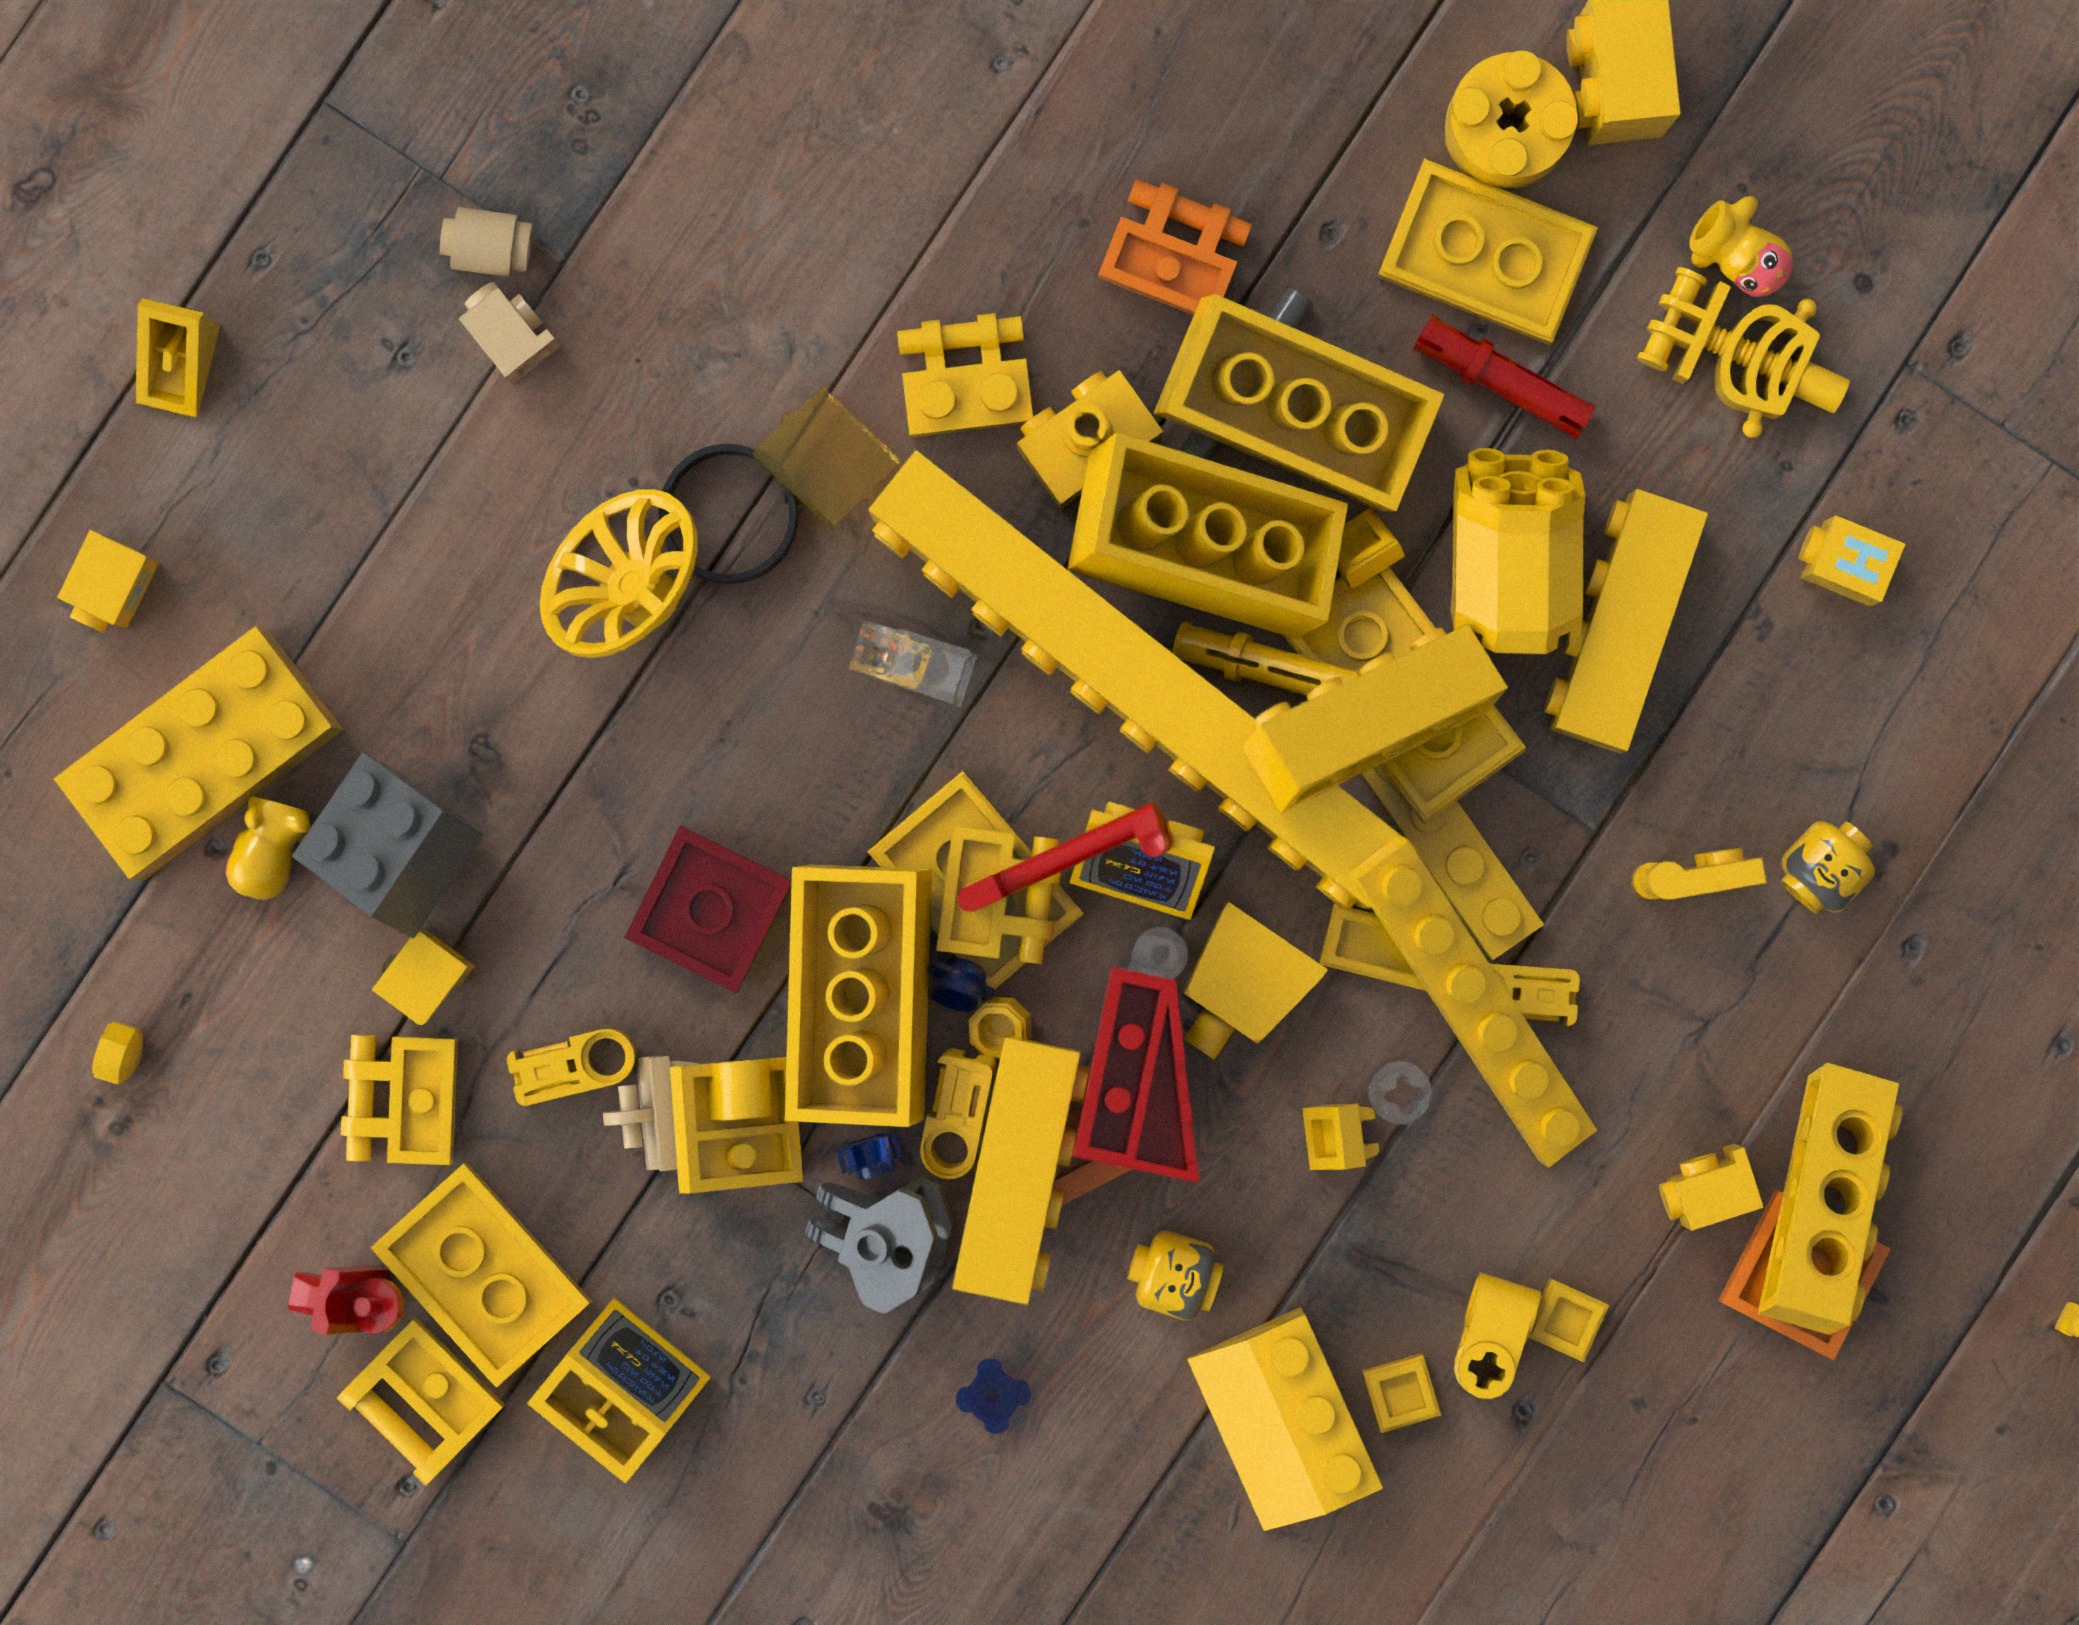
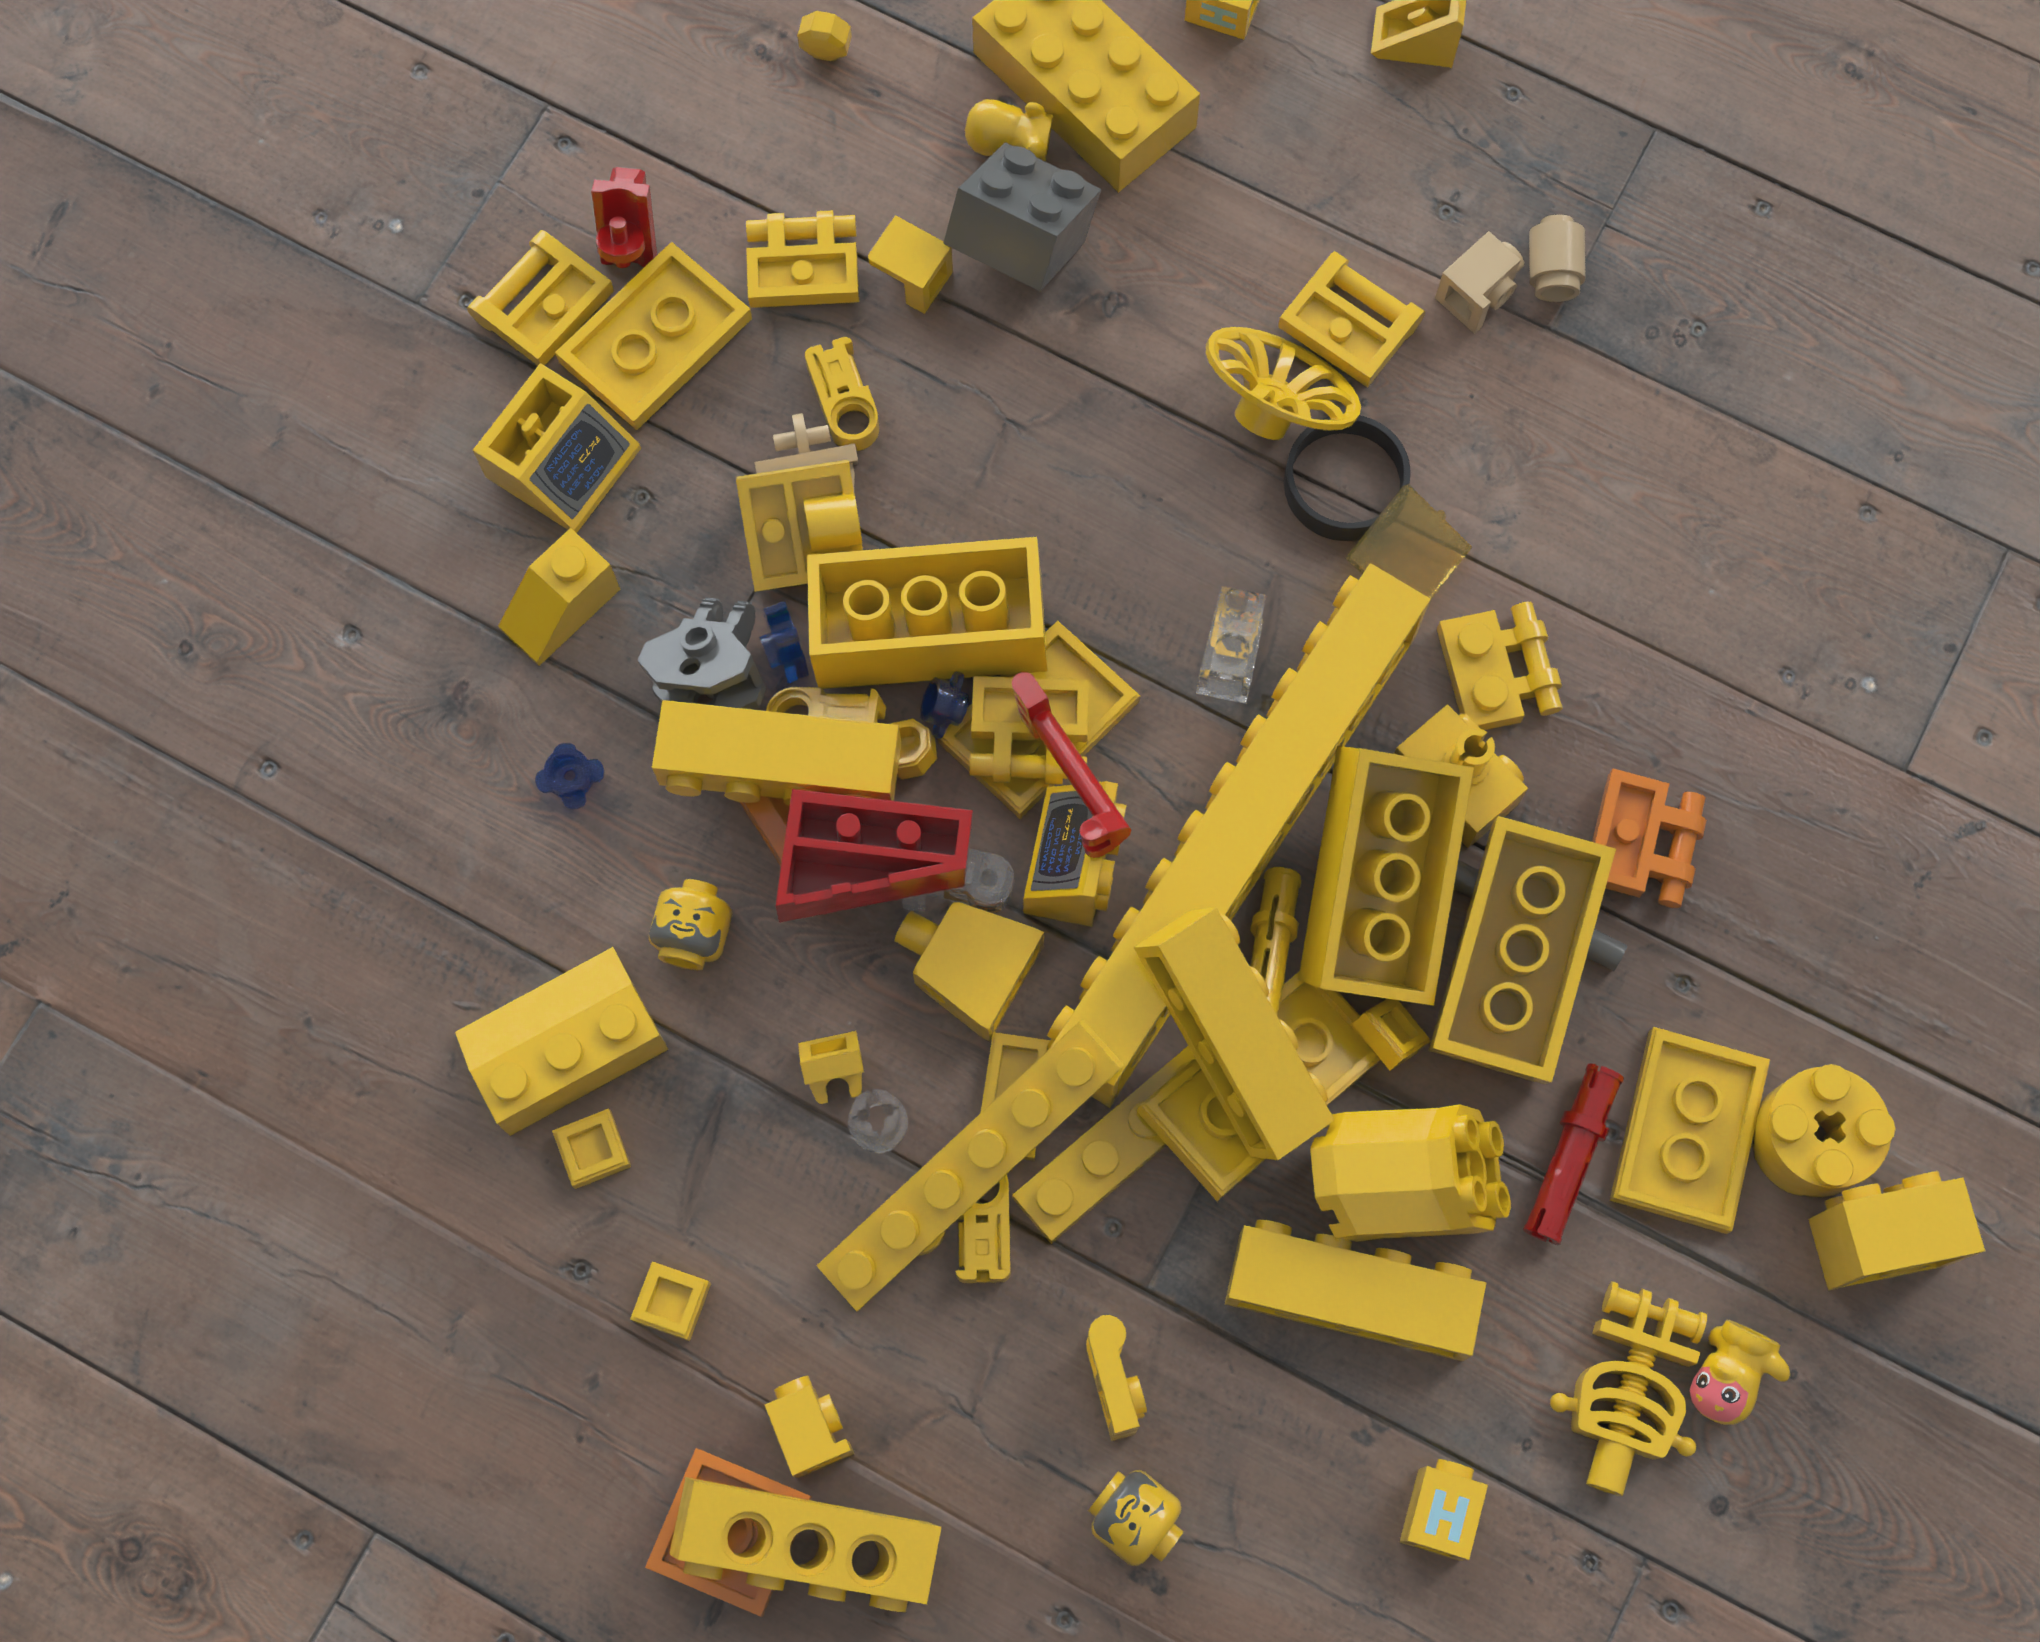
camera: 85 degrees right, 15 degrees down
(551, 497) = (1342, 330): none -> yellow plate
(708, 909) = (990, 487): dark red plate -> none
(791, 1399) = (558, 596): none -> yellow slope
(1496, 1322) = (661, 1231): yellow piece -> none

